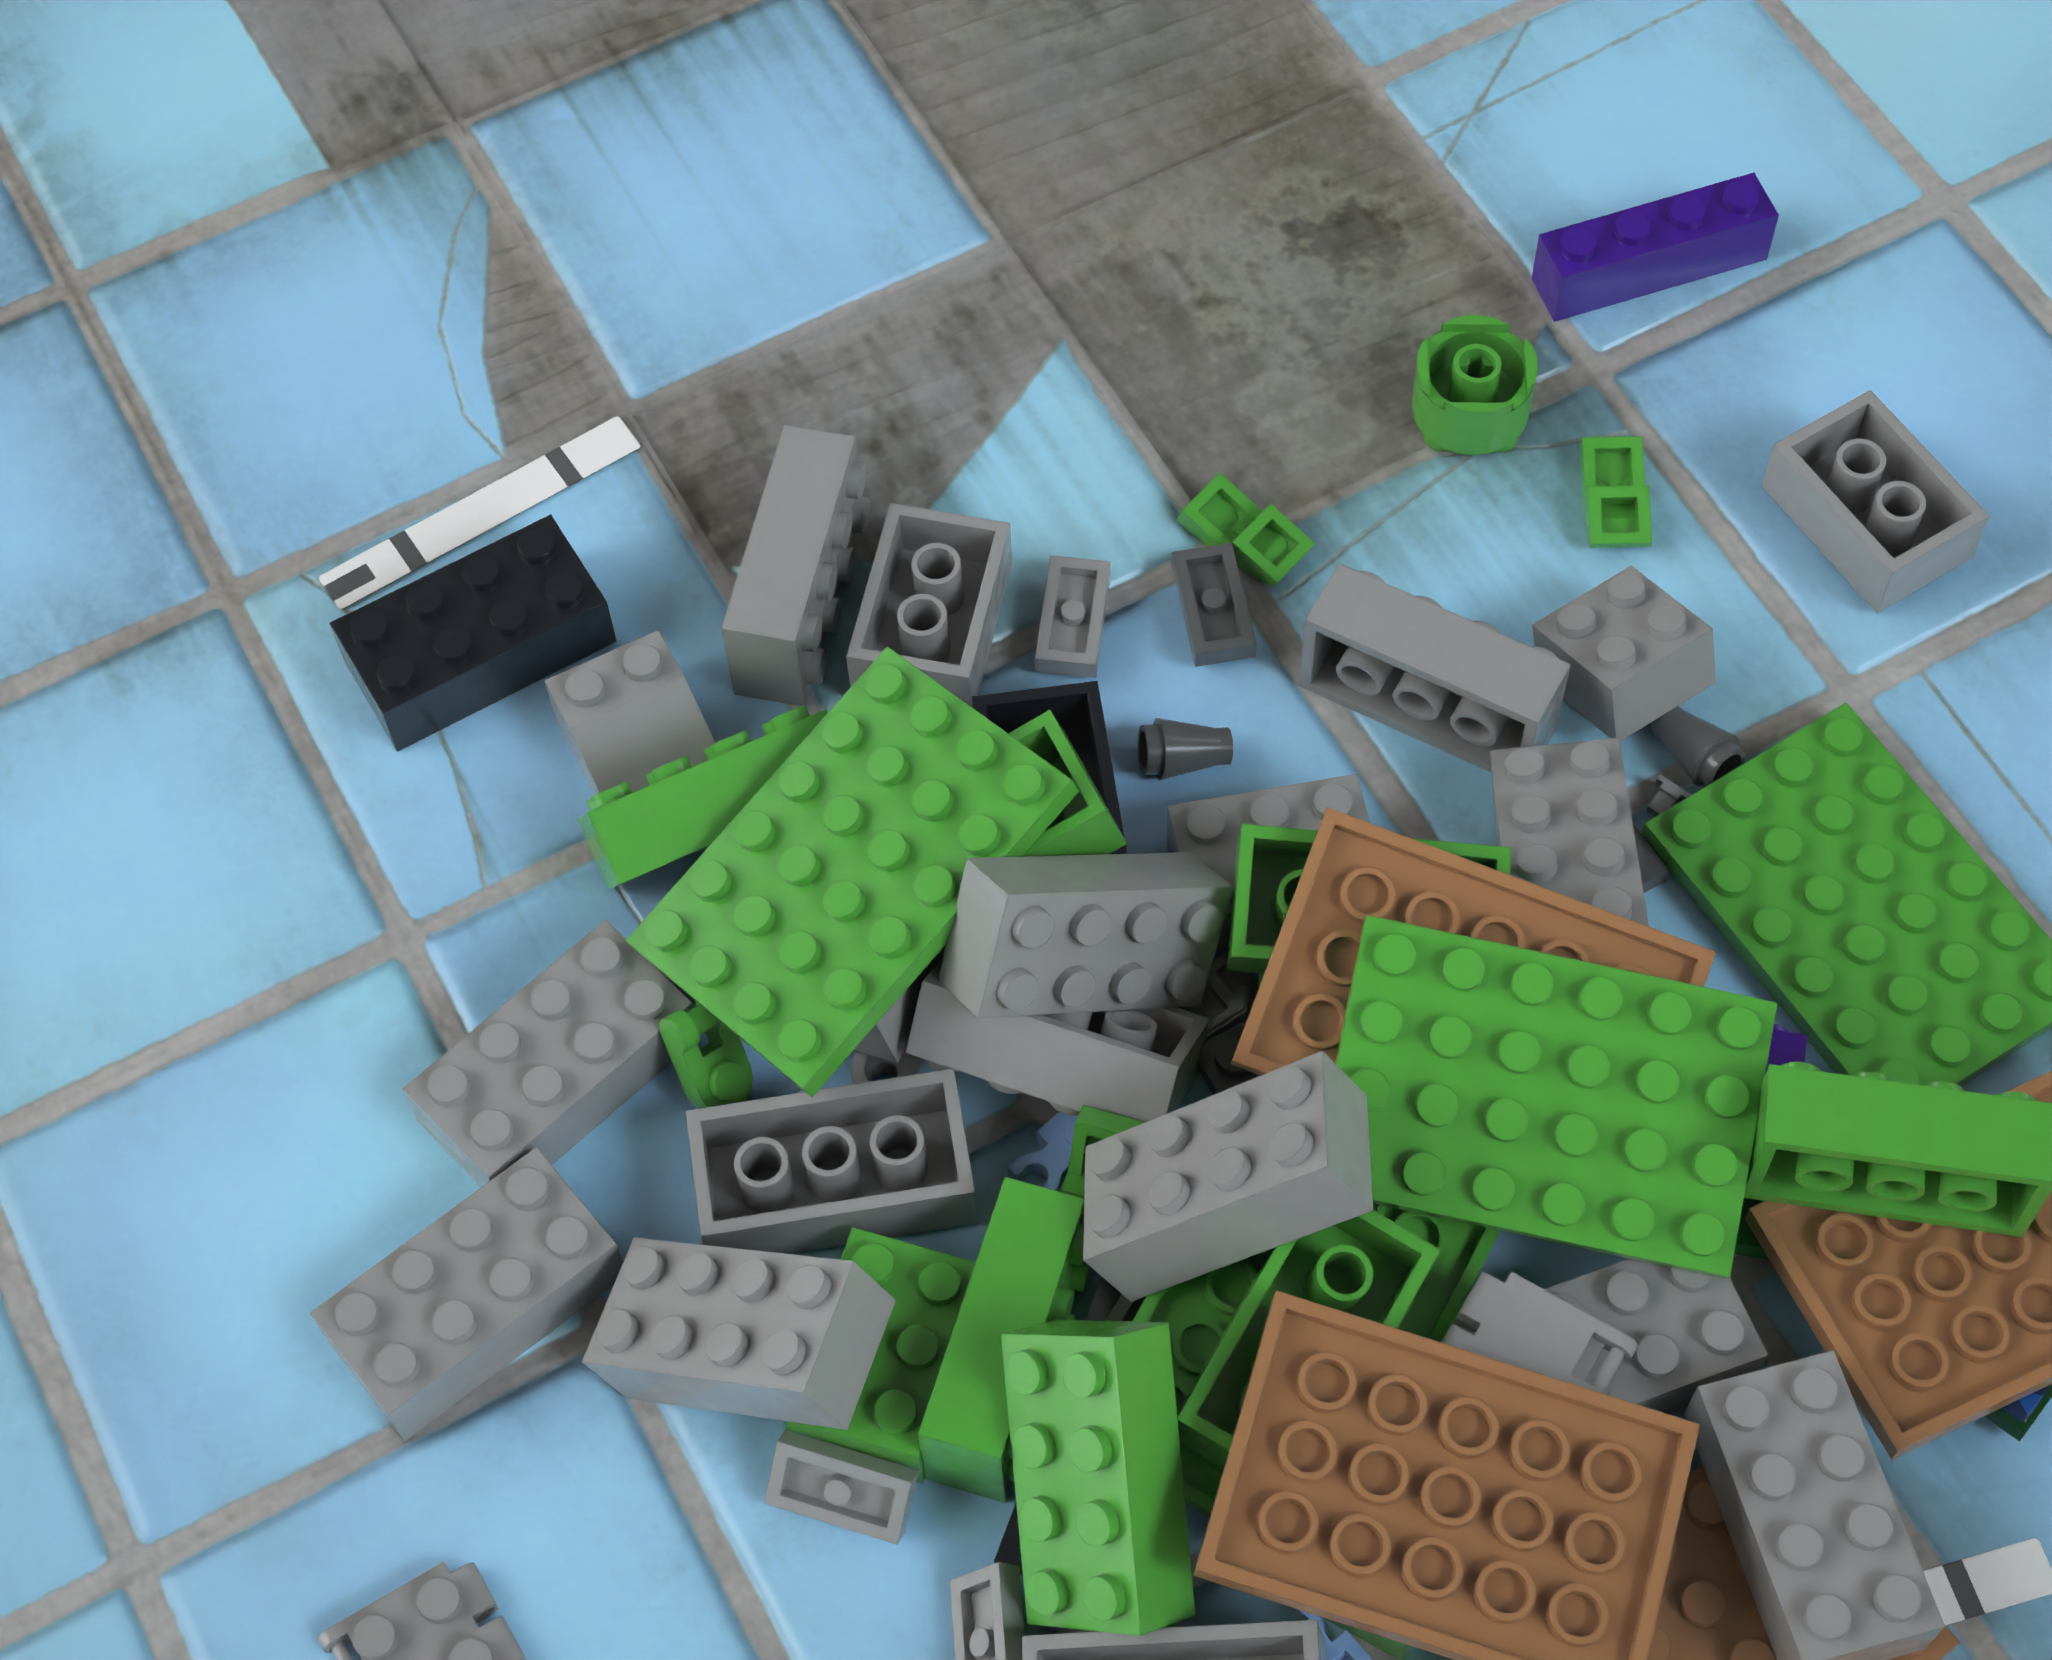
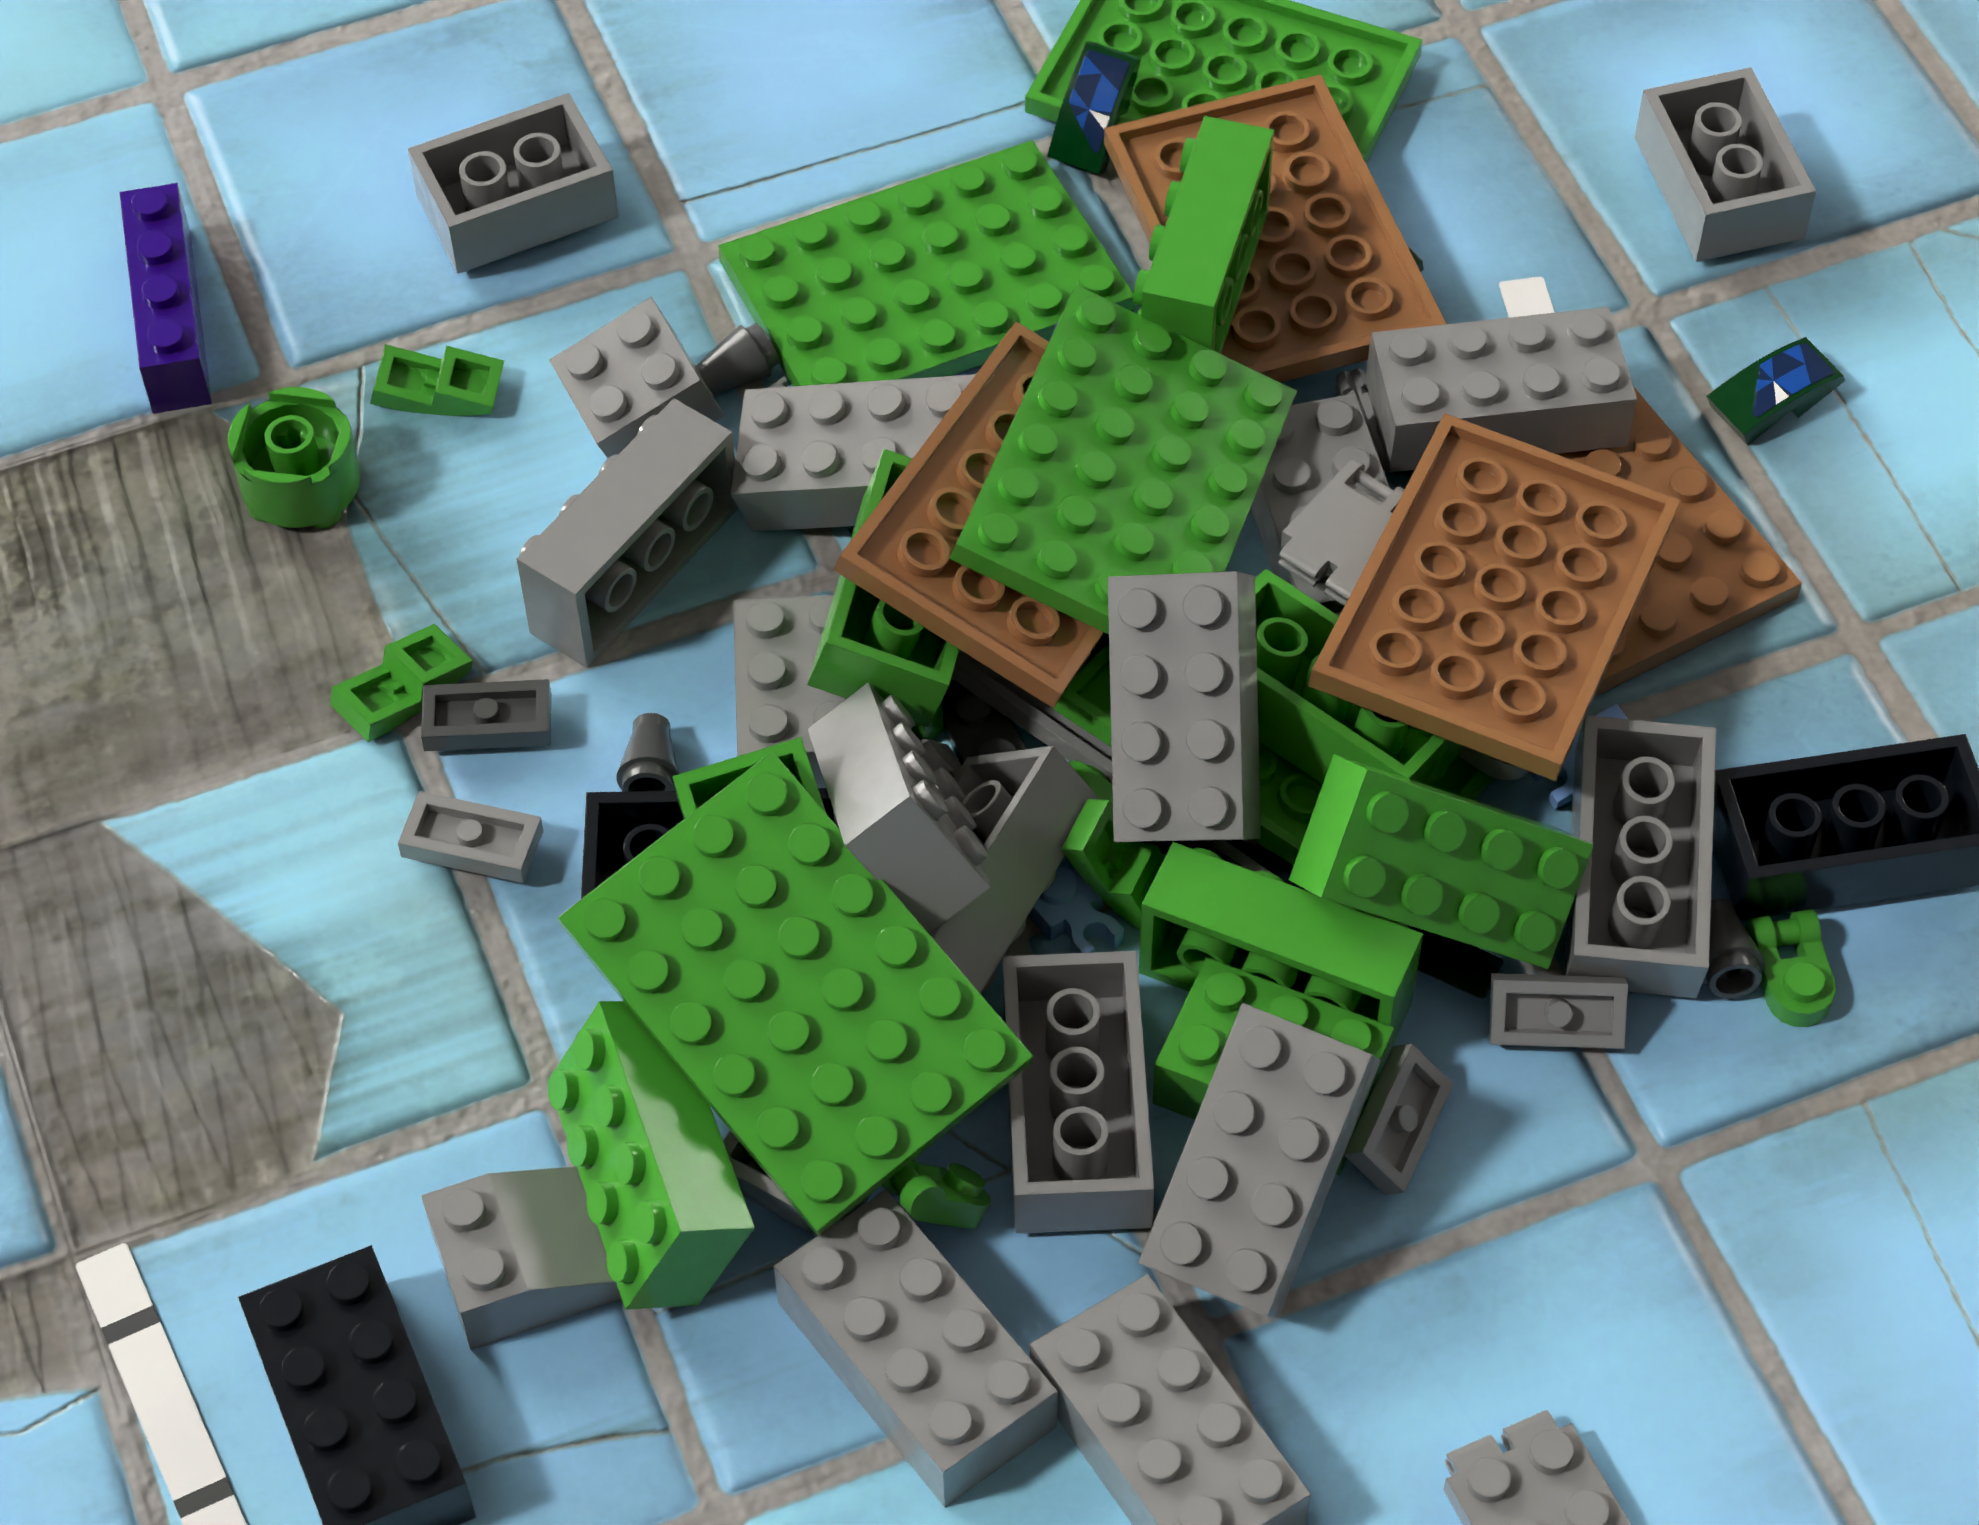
camera: 85 degrees left, 5 degrees down
(796, 566) = (363, 1063): light grey brick -> none
(934, 596) = (443, 949): light grey brick -> none

